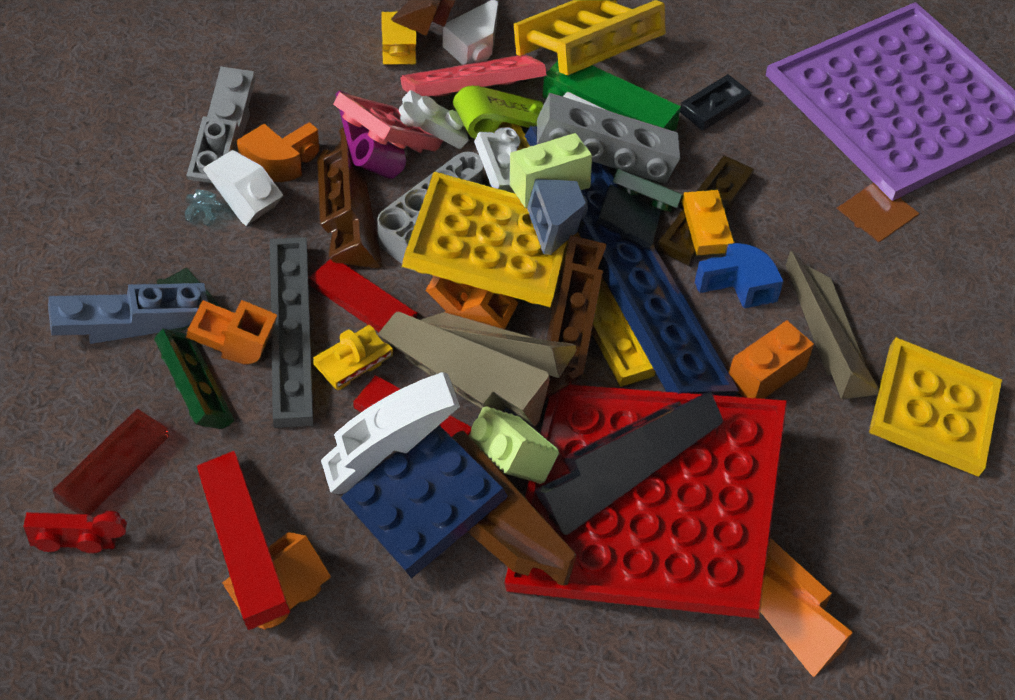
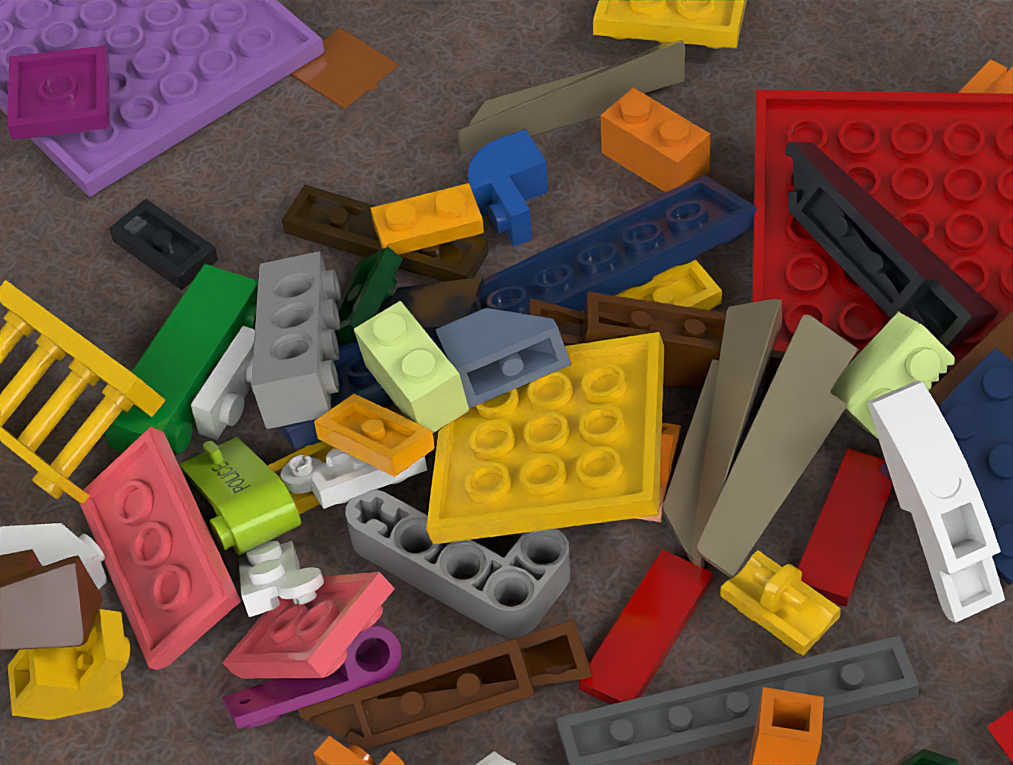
camera: 90 degrees left, 0 degrees up
(496, 156) = (374, 435): none -> light orange plate
(842, 49) = (58, 92): none -> magenta plate

